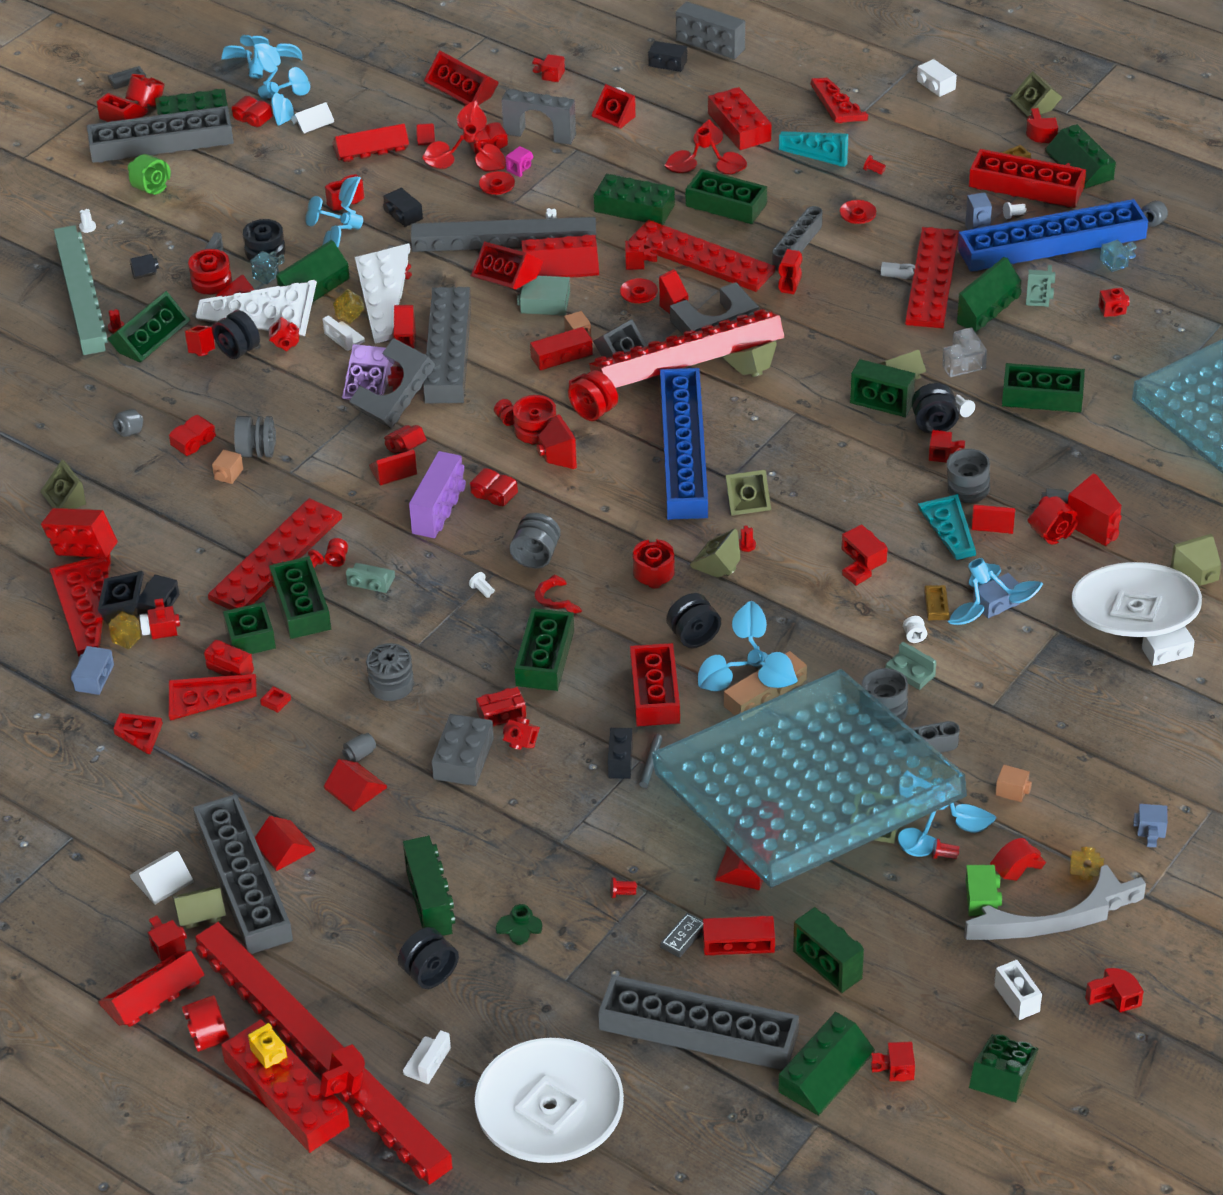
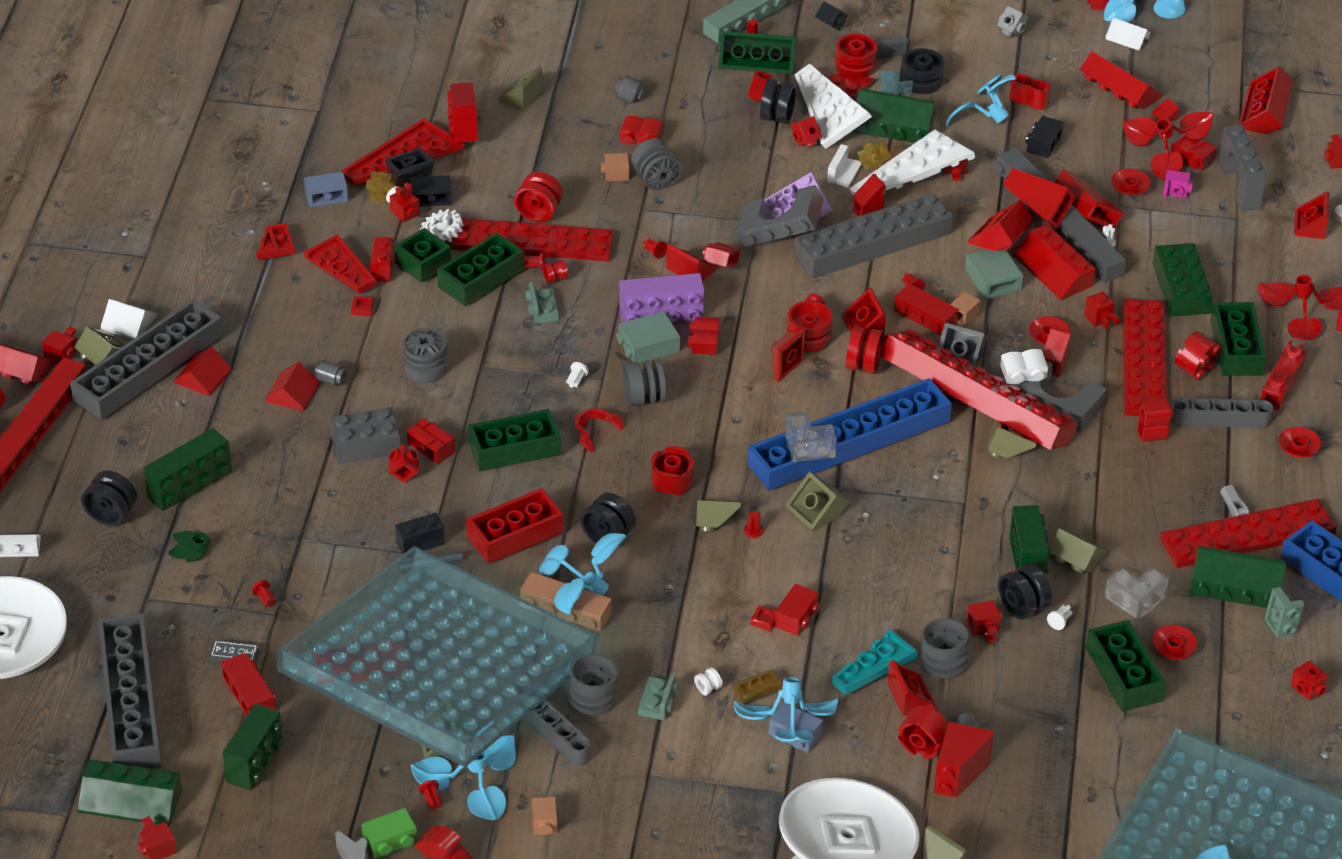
camera: 60 degrees right, 0 degrees up
(207, 605) = (444, 224): none -> white gear
(236, 524) = (538, 196): none -> red wheel
(247, 163) = (1012, 22): none -> light grey brick
(352, 480) = (657, 248): none -> red piece
(470, 522) = (648, 337): none -> sand green brick
(495, 227) = (1041, 196): none -> red slope
(502, 211) = (1089, 201): none -> red slope
(520, 345) = (909, 278): none -> red piece
(546, 381) = (865, 312): none -> red slope
(687, 312) = (1024, 366): none -> white brick
(696, 459) = (809, 442): none -> clear brick
(731, 222) = (1197, 355): none -> red brick
(782, 192) = (1284, 375): none -> red brick
(1029, 354) = (1174, 642): none -> red dish

